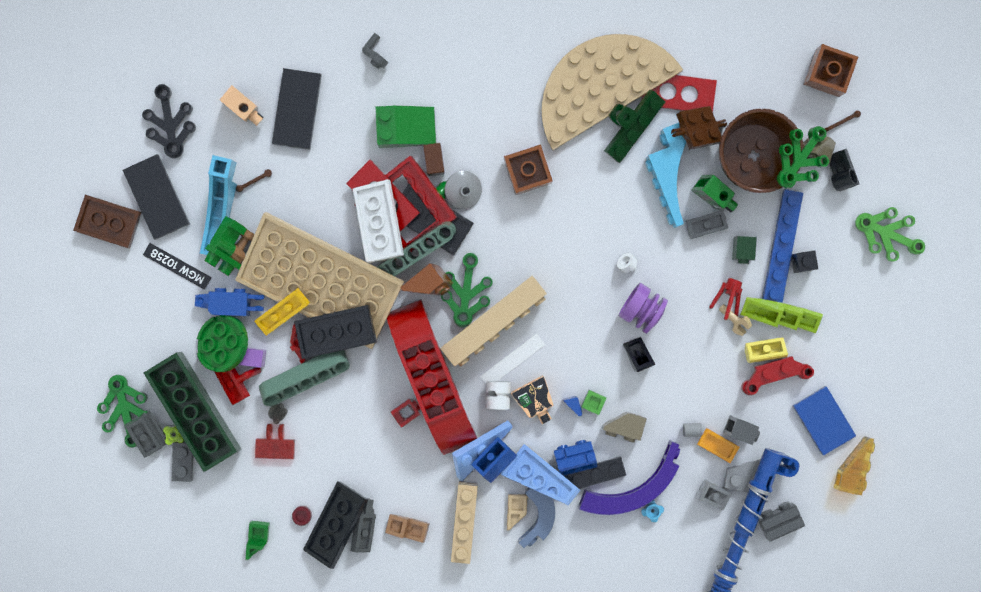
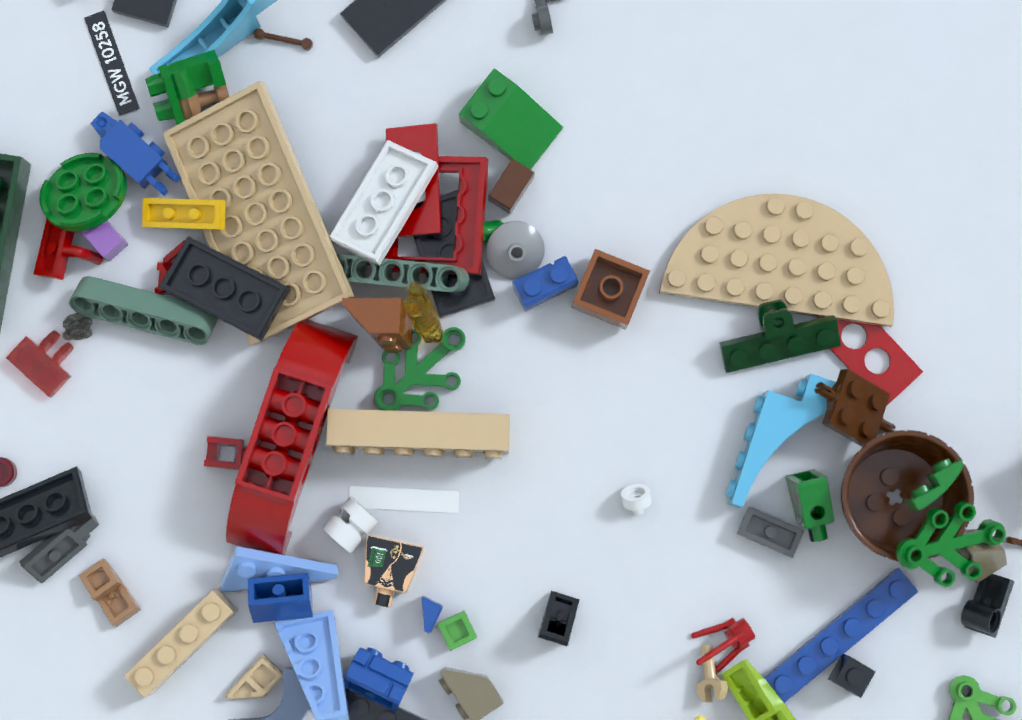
camera: 40 degrees right, 5 degrees down
(445, 261) = (423, 314): none -> clear yellow hinge
(492, 194) = (545, 283): none -> blue brick
(643, 308) = (610, 567): medium lavender wheel -> none
(744, 249) = (790, 599): dark green brick -> none
(771, 129) = (940, 479): none -> green slope

